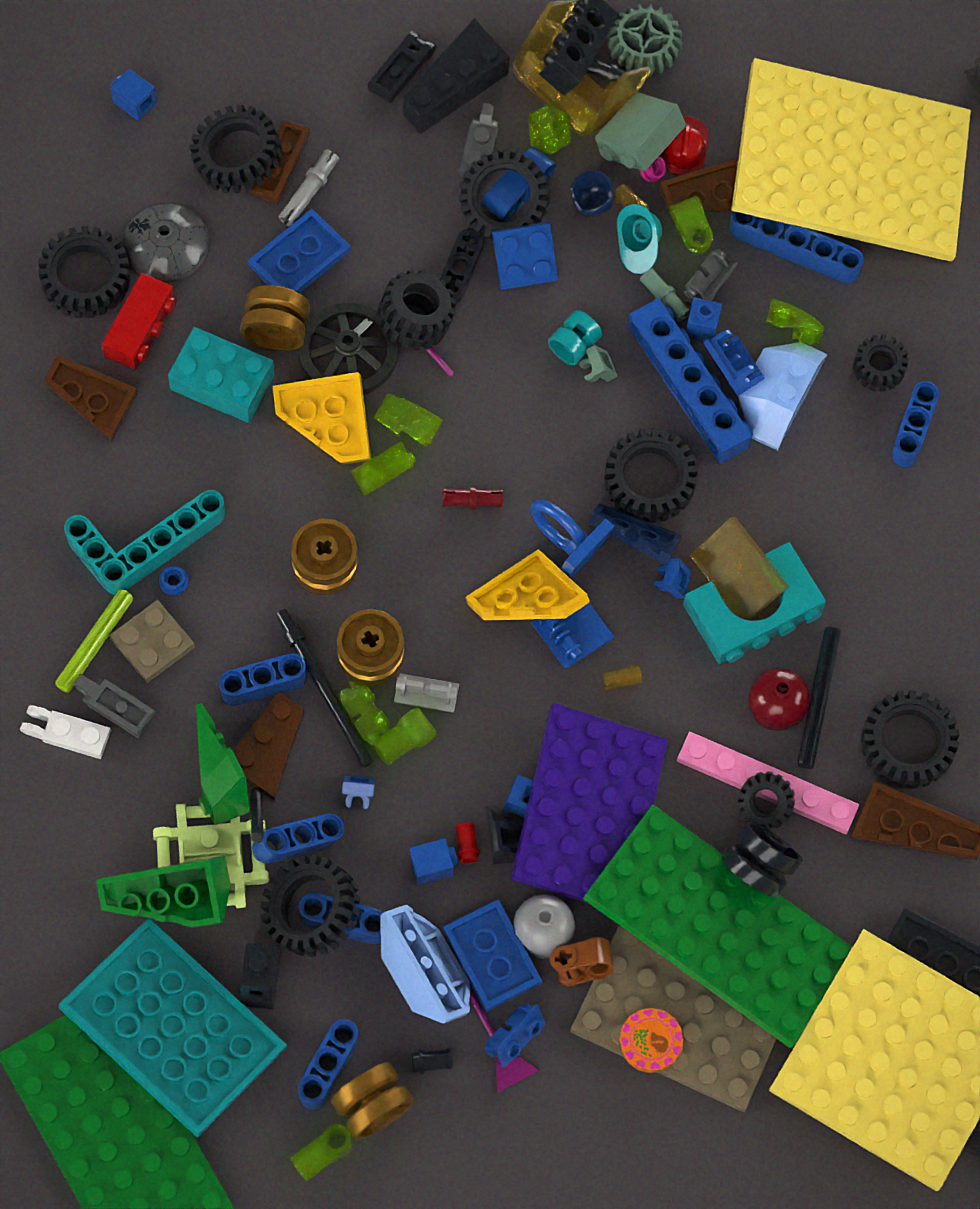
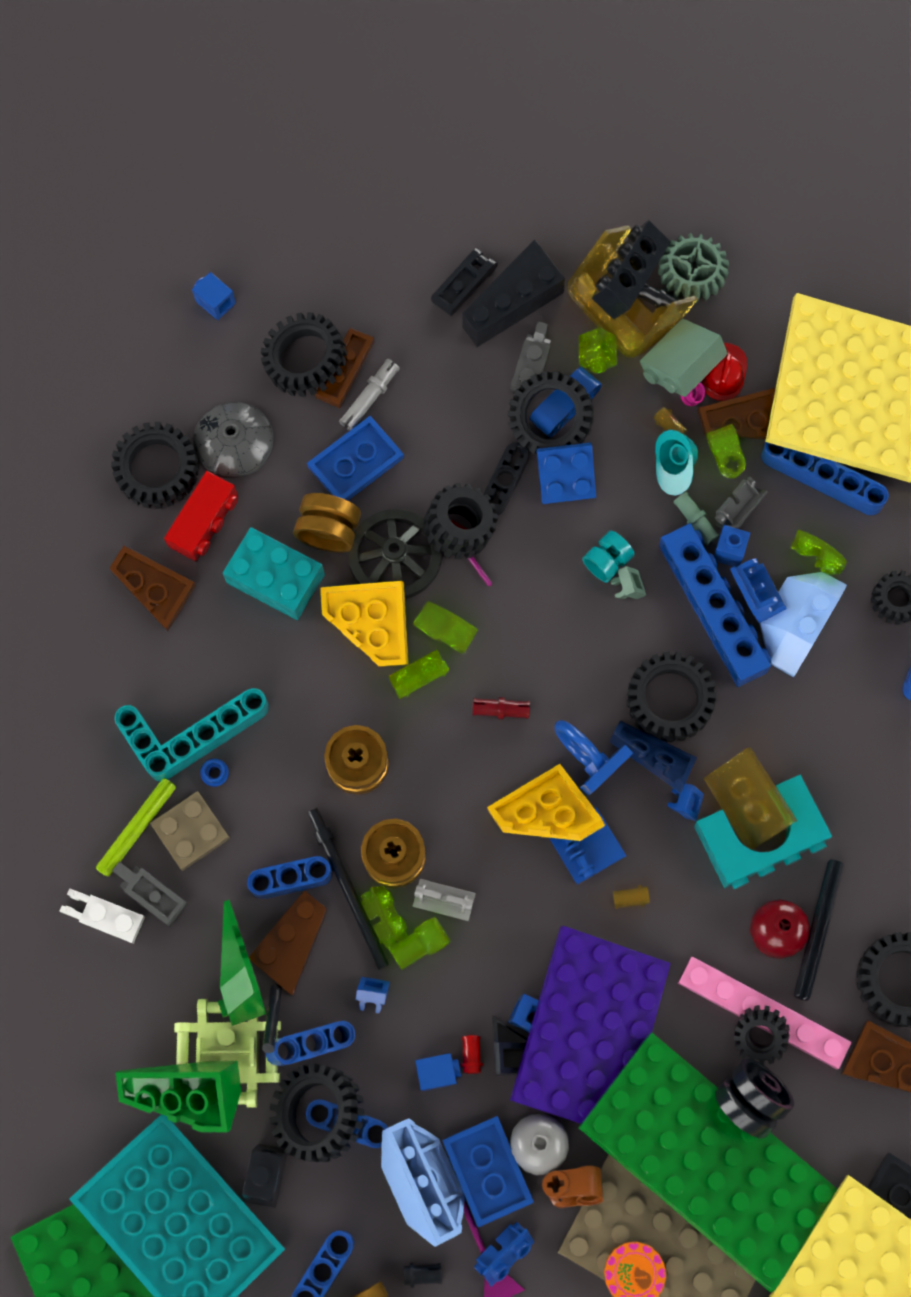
camera: 10 degrees right, 5 degrees up
(592, 193) = (634, 415): dark blue hair -> none

